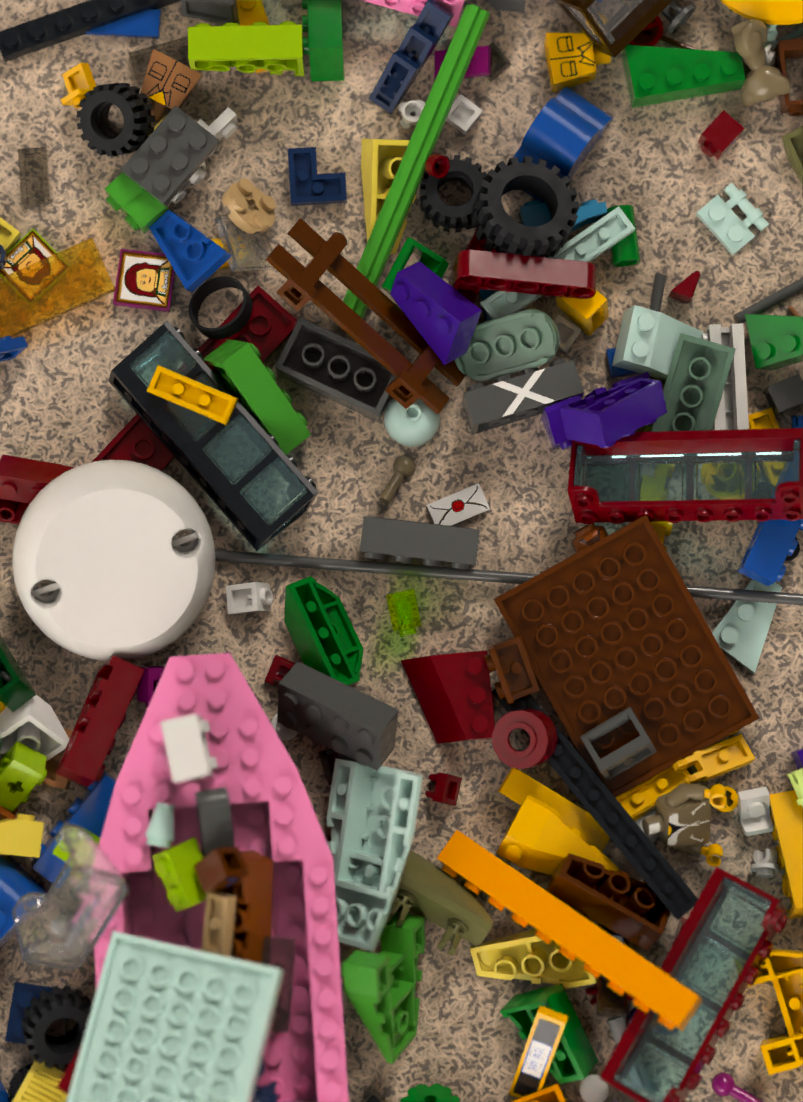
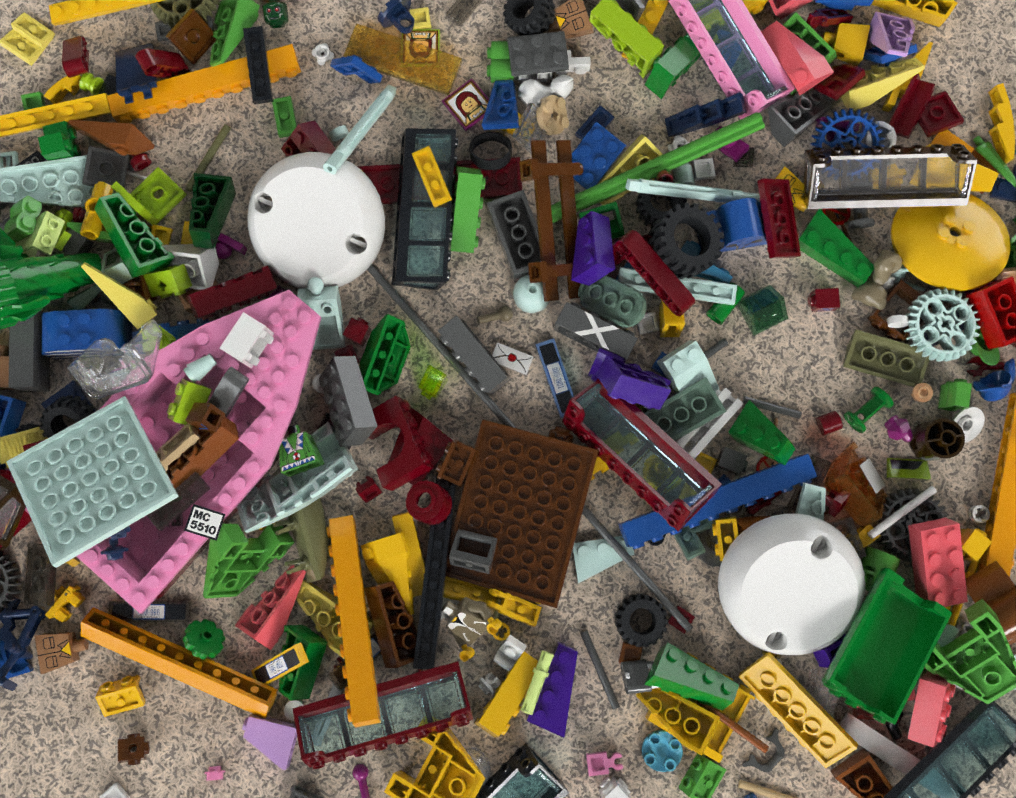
camera: 45 degrees right, 0 degrees up
(36, 444) = (338, 133): none -> light aqua tile
(38, 677) = (225, 246): none -> magenta tile
(68, 418) = (358, 132): none -> light aqua piece
(204, 202) = (533, 91): none -> white animal
(212, 636) = (327, 304): none -> light aqua slope
(249, 598) = (366, 304): white bracket -> none
(269, 634) = (357, 331): none -> dark red brick
(325, 978) = (204, 522): none -> sticker
(337, 205) = (596, 154): none -> blue plate
(344, 817) = (298, 452): none -> bright green torso
(452, 143) = (684, 174): none -> light aqua brick
(466, 708) = (413, 458): none -> dark red arch
(472, 1015) = (267, 619): none -> coral wedge
(478, 152) = (687, 191): none -> light aqua piece
(522, 481) = (555, 374): none -> tile
(595, 95) = (779, 218): none -> dark red plate
(667, 205) = (763, 309): none -> clear green slope
(685, 290) = (731, 359): dark red slope -> none
(726, 224) = (784, 347): light aqua plate -> none

